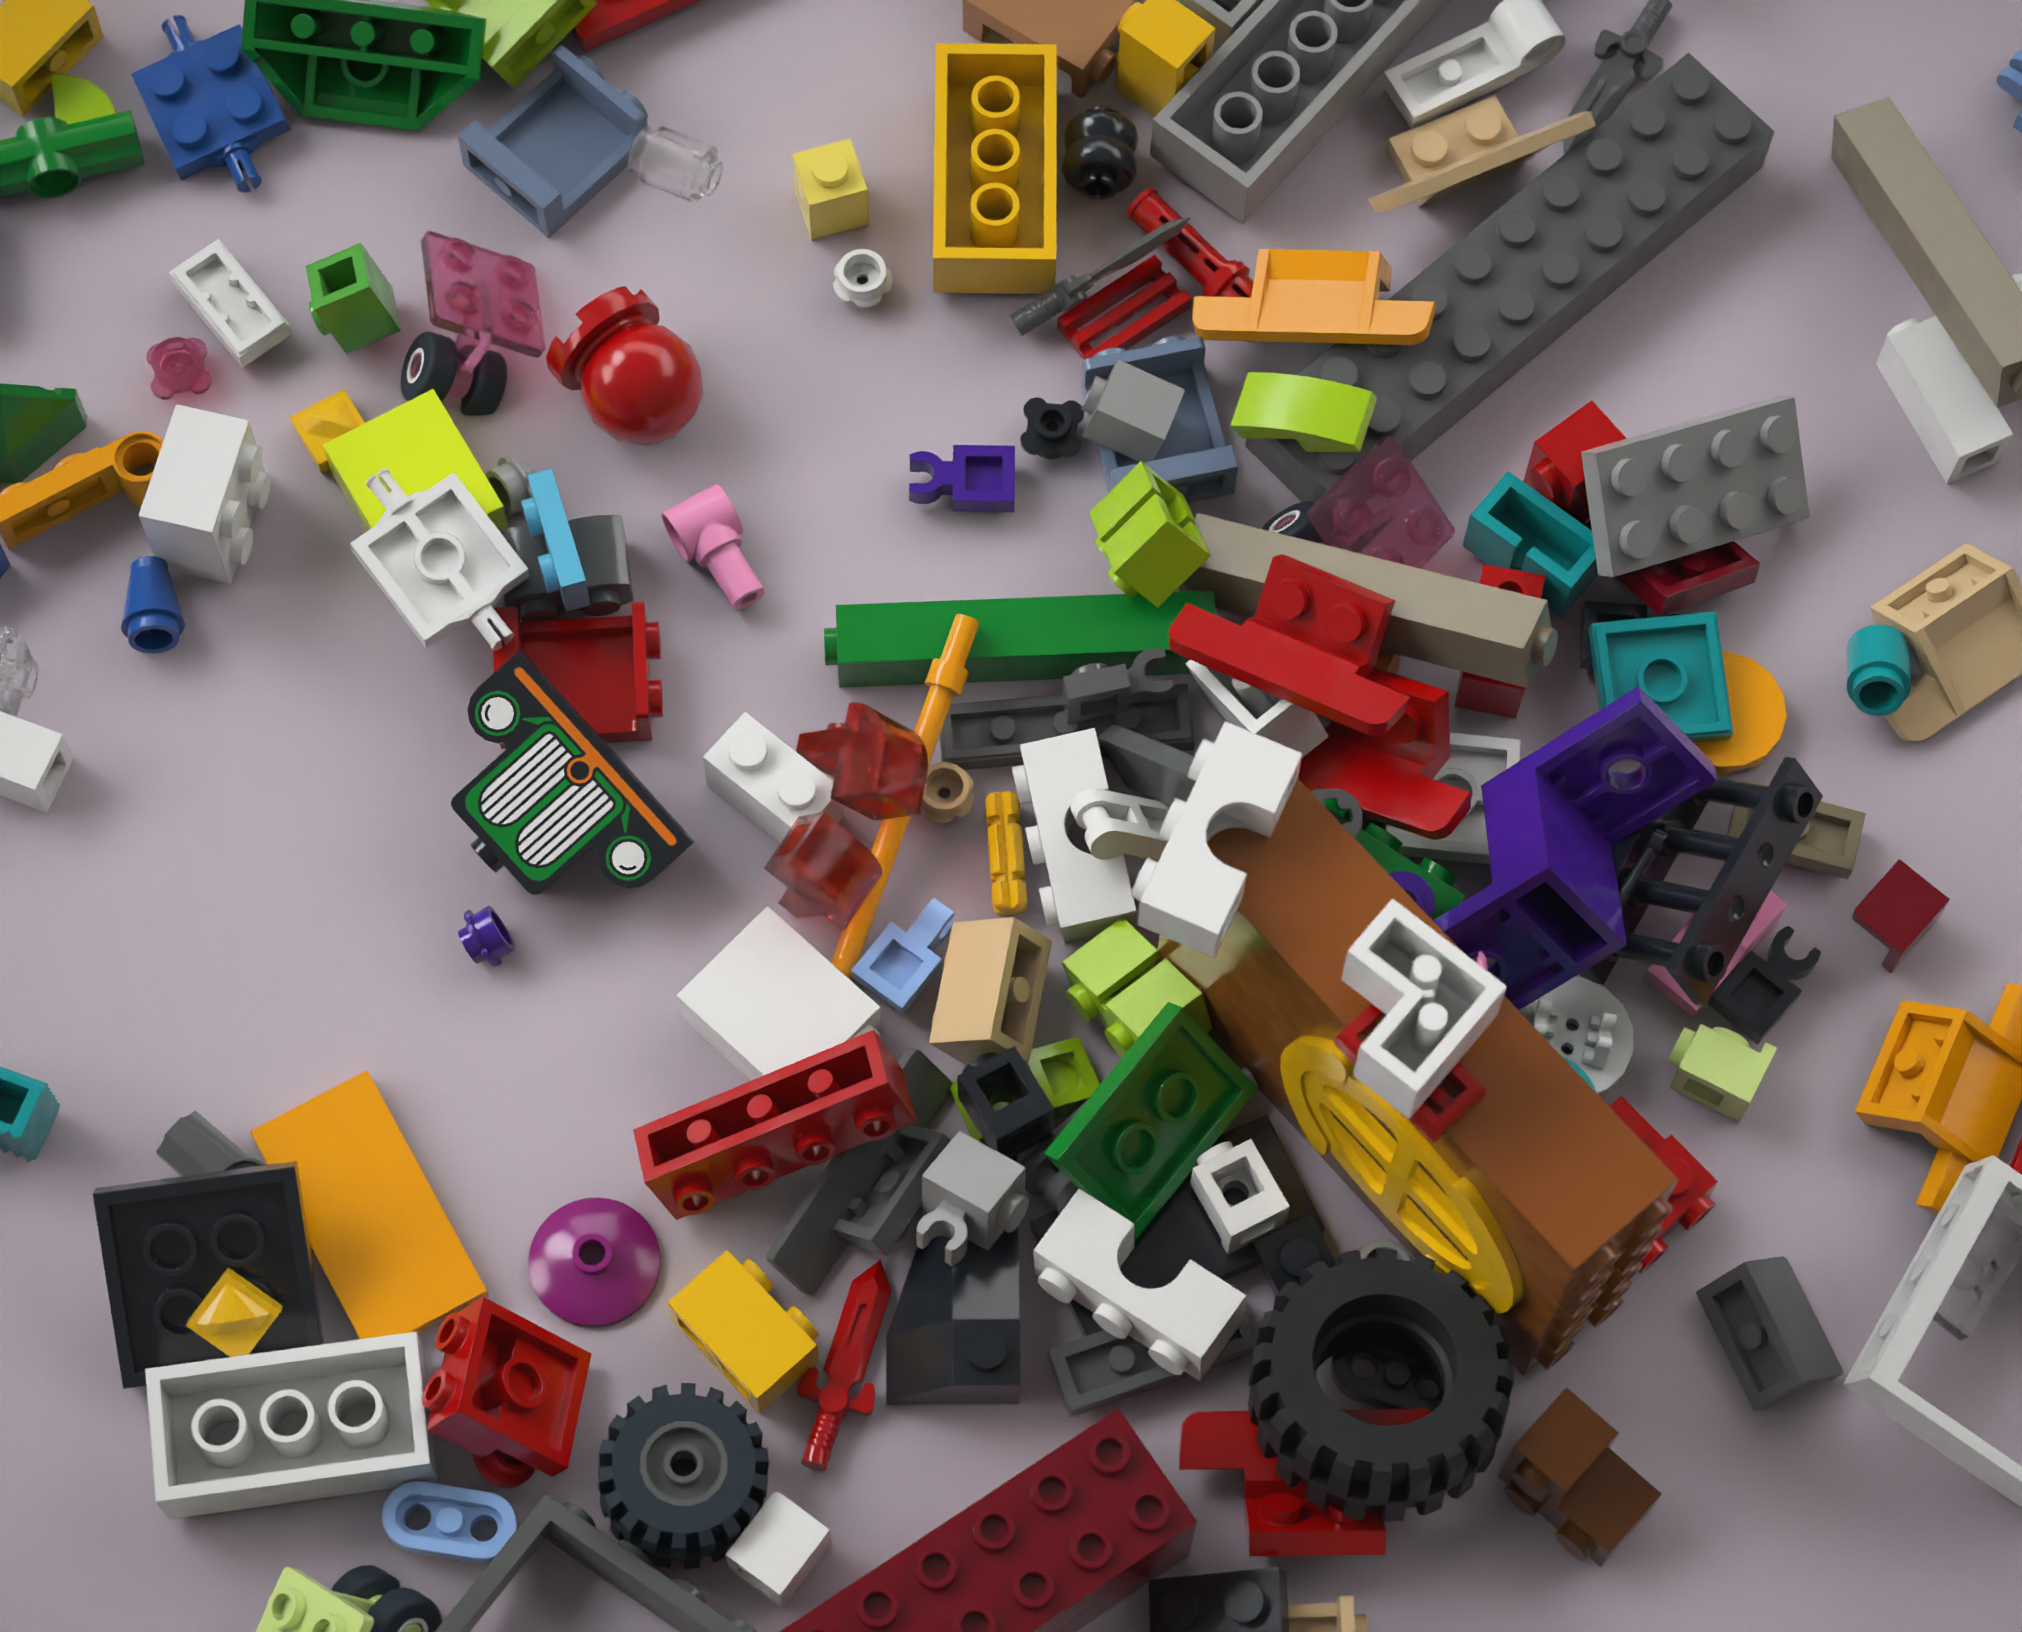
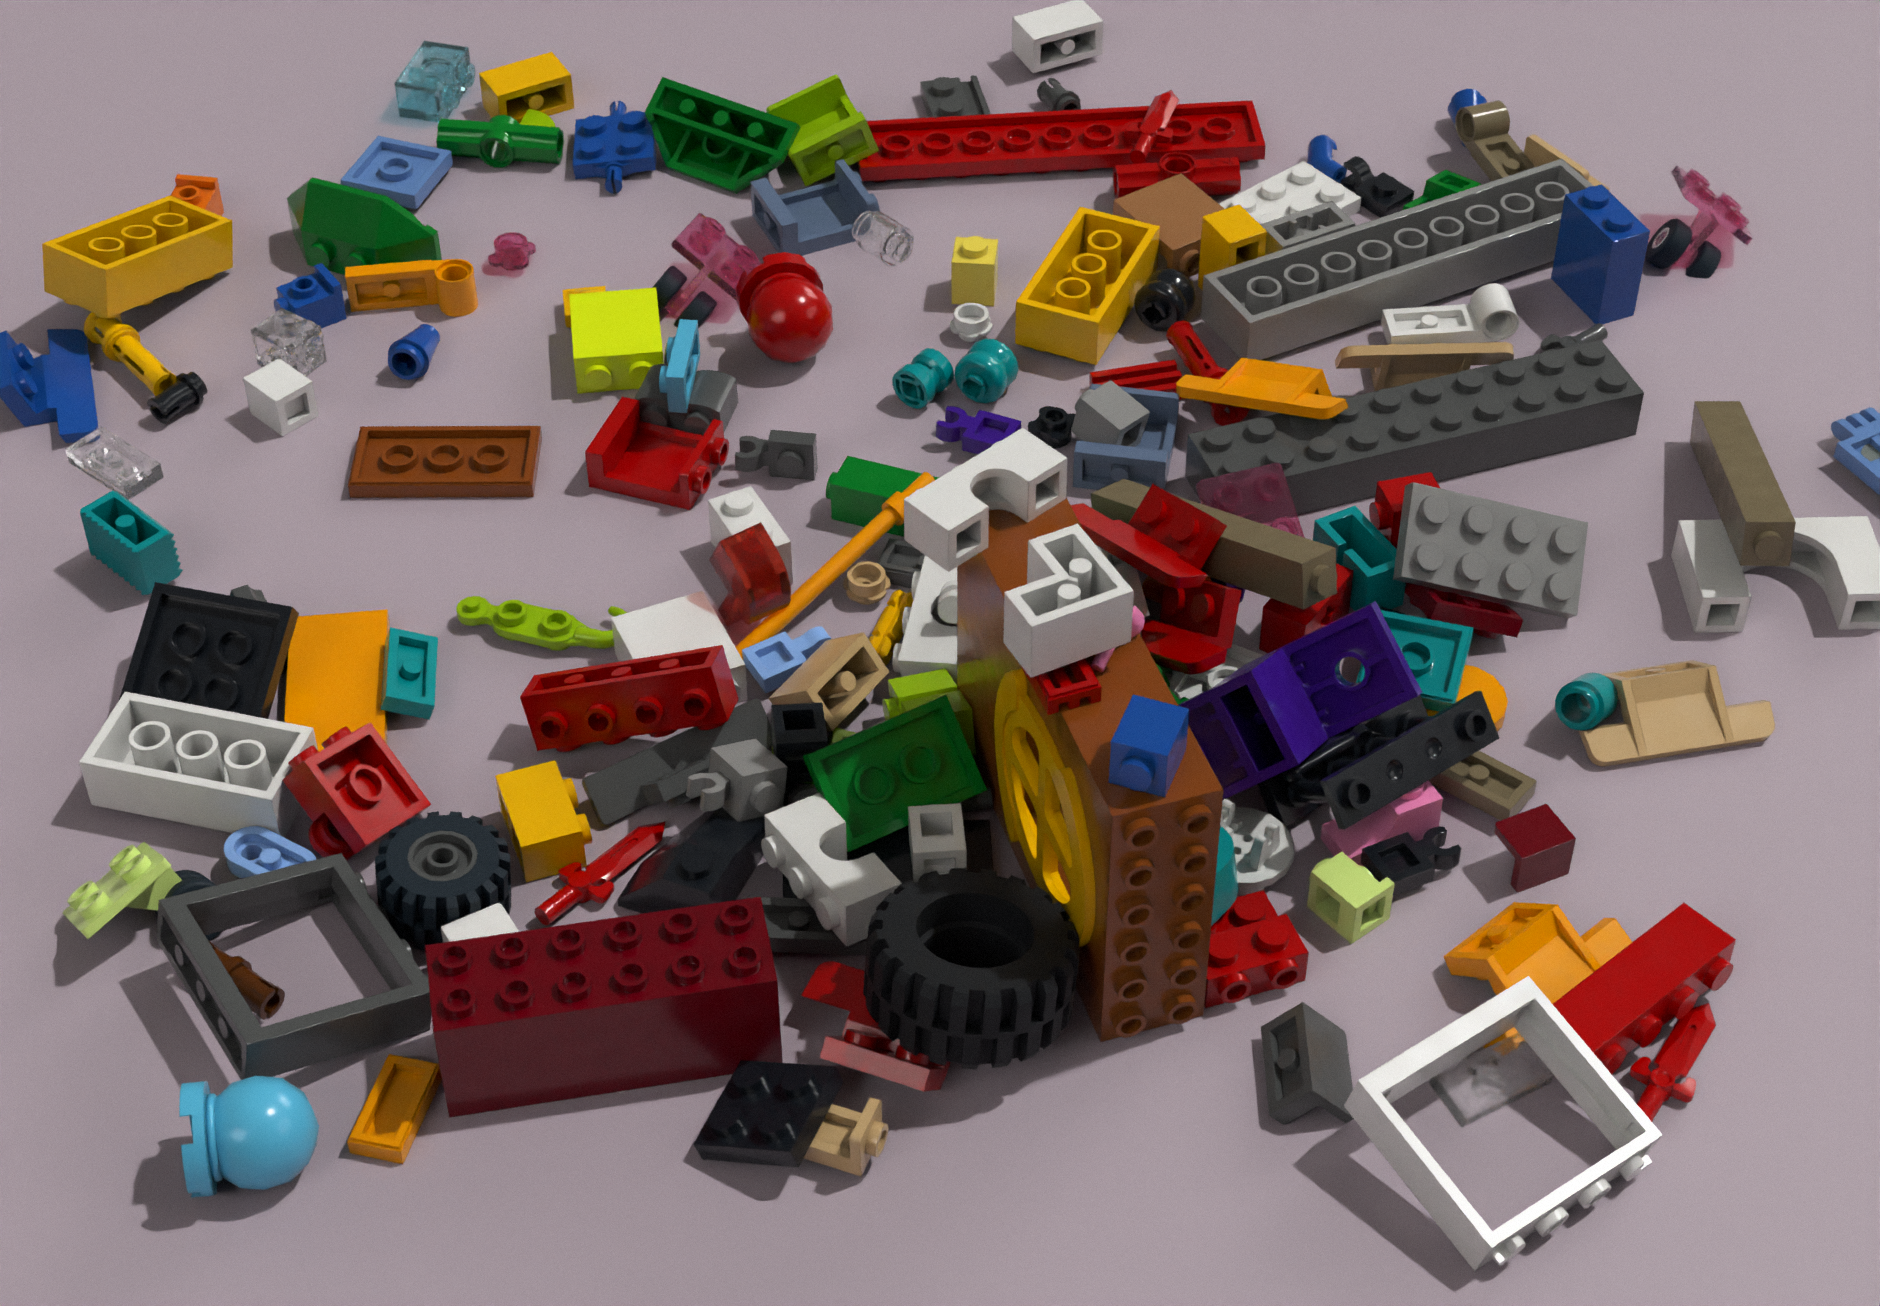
camera: 25 degrees right, 25 degrees down
(205, 494) = (479, 296): white brick -> none
(230, 303) = (563, 231): white plate -> none
(234, 1315) = (205, 685): yellow tile -> none
(295, 781) = (445, 461): none -> dark orange tile
(352, 299) = (636, 240): bright green brick -> none
(439, 559) = (601, 357): white plate -> none
(456, 1165) = (409, 673): none -> teal plate
(486, 936) = (511, 566): dark purple plate -> none
(557, 790) = (601, 494): brick -> none
(570, 1016) = (534, 624): none -> lime piece
(598, 1292) = (465, 760): magenta dish -> none
(708, 531) = (790, 407): bright pink pin -> none
(738, 614) = (785, 452): none -> dark grey plate
(852, 410) = (917, 383): none -> teal wheel
(874, 763) = (819, 535): clear red brick -> none
(929, 370) = (986, 371): none -> teal piece
(1072, 291) = (1111, 356): dark grey sword -> none
(1148, 535) = (1088, 468): lime piece -> none
(1303, 408) = (1225, 429): lime slope -> none
(1576, 1480) = (1096, 1094): reddish brown brick -> none
(1585, 1169) = (1148, 745): none -> blue brick

